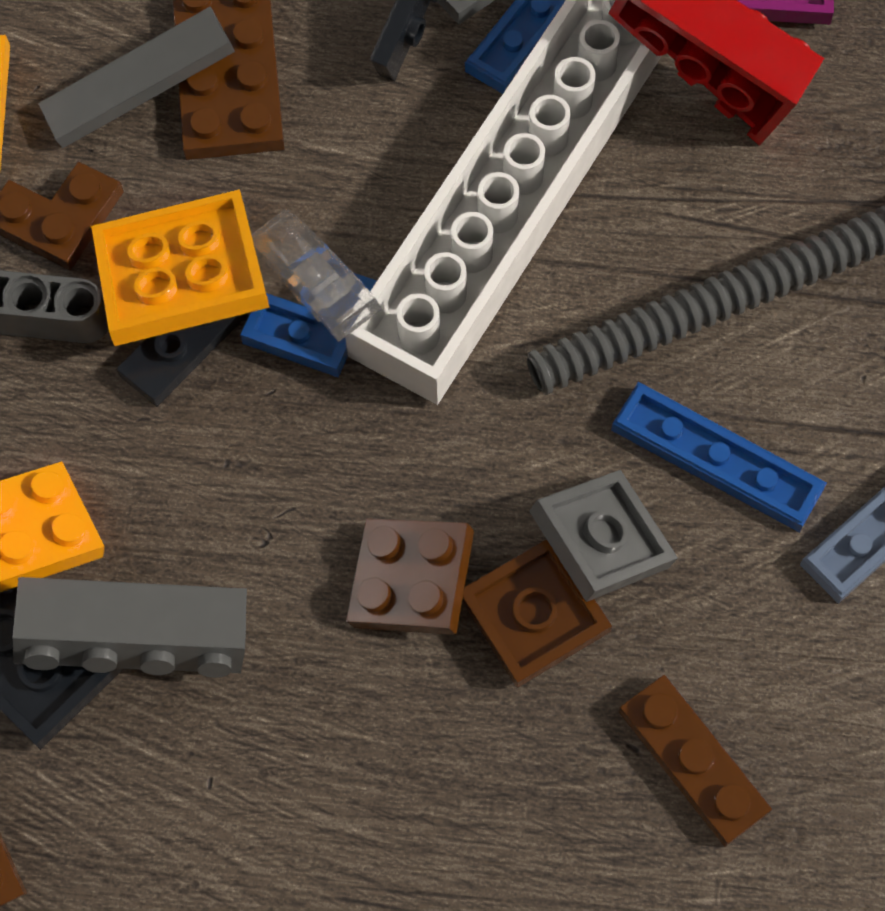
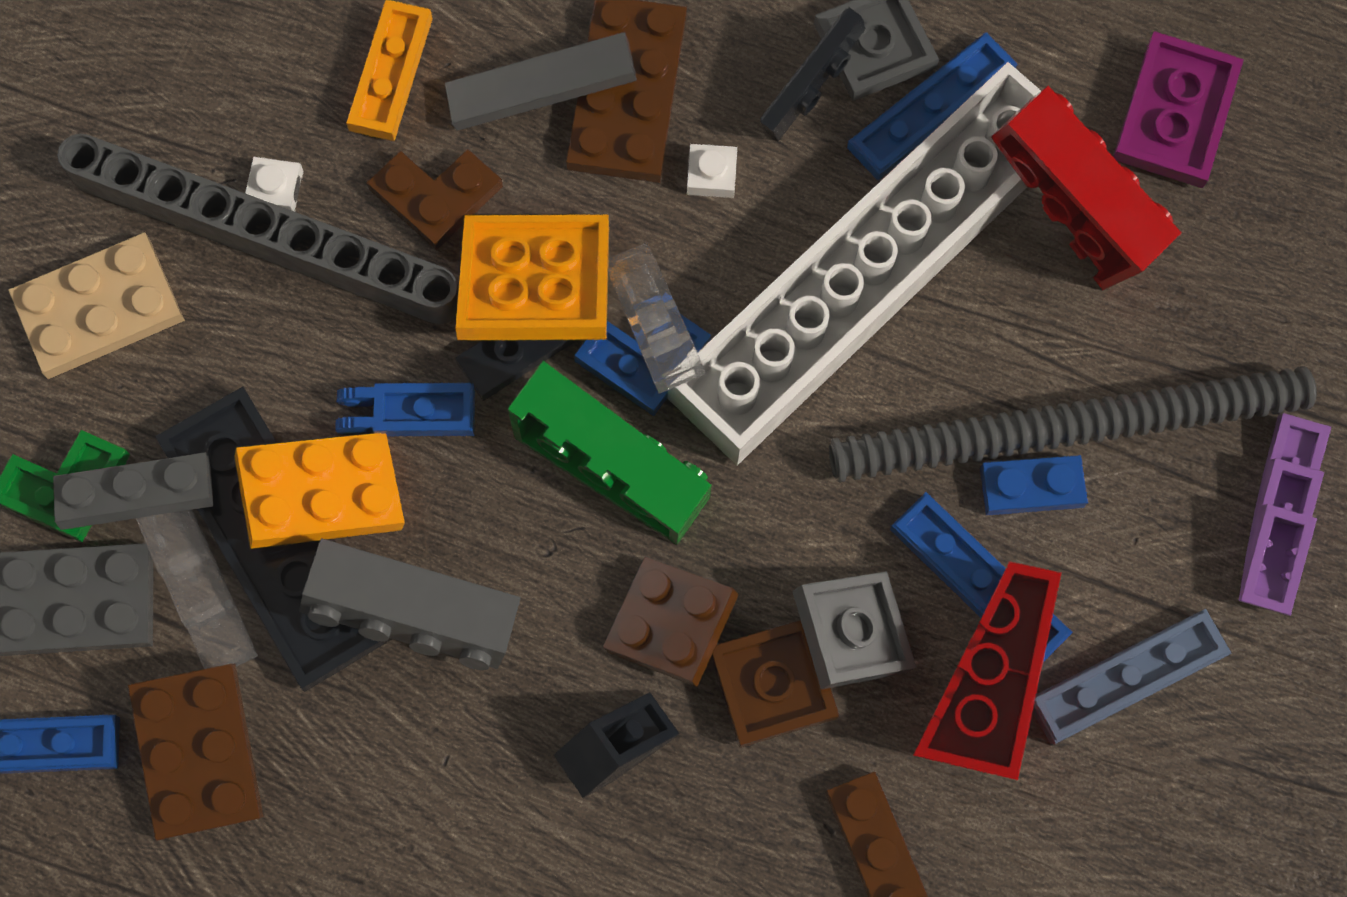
camera: 10 degrees right, 5 degrees up
(81, 432) = (410, 409): none -> blue hinge
(299, 422) = (608, 453): none -> green wedge
(334, 124) = (712, 170): none -> white plate
(384, 716) = (615, 744): none -> black slope
(745, 349) = (1033, 485): none -> blue plate
(764, 555) = (994, 688): none -> red wedge

